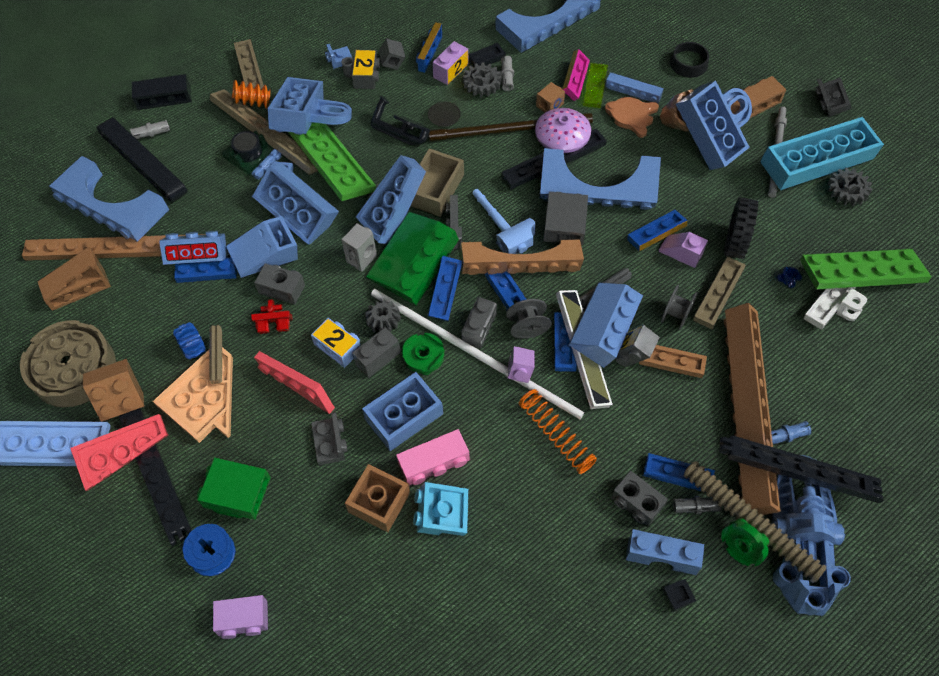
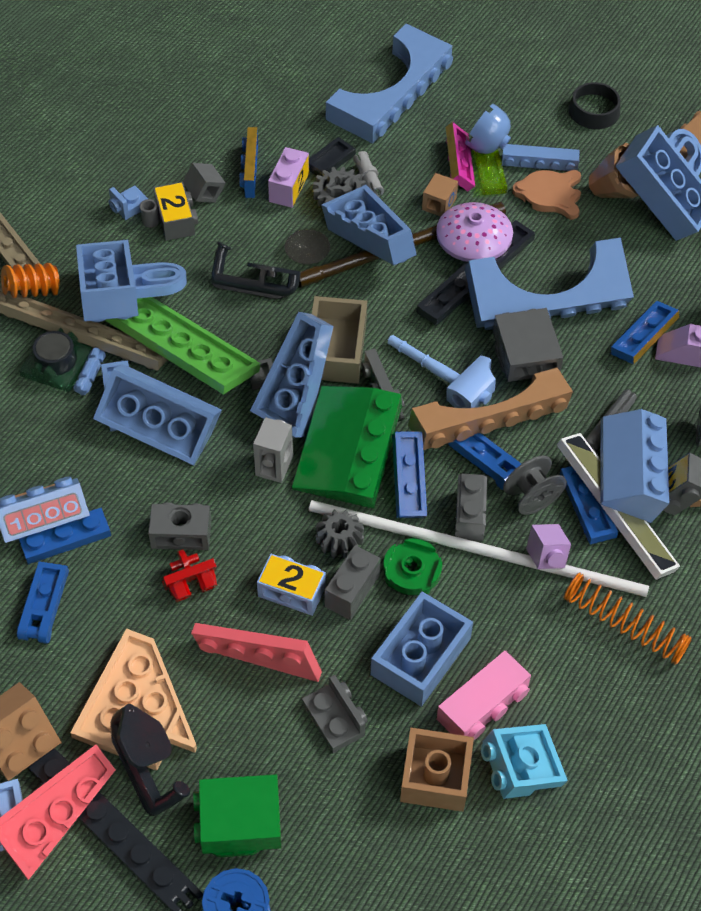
camera: 20 degrees left, 5 degrees down
(172, 310) = (43, 601): none -> blue plate
(187, 421) = (140, 743): none -> black piece
(189, 340) = (89, 636): blue gear -> none
(215, 354) = (135, 644): dark tan axle -> none
(265, 243) = (139, 478): medium blue slope -> none
(488, 107) = (370, 225): none -> medium blue wedge
(601, 60) = (490, 131): none -> medium blue cylinder

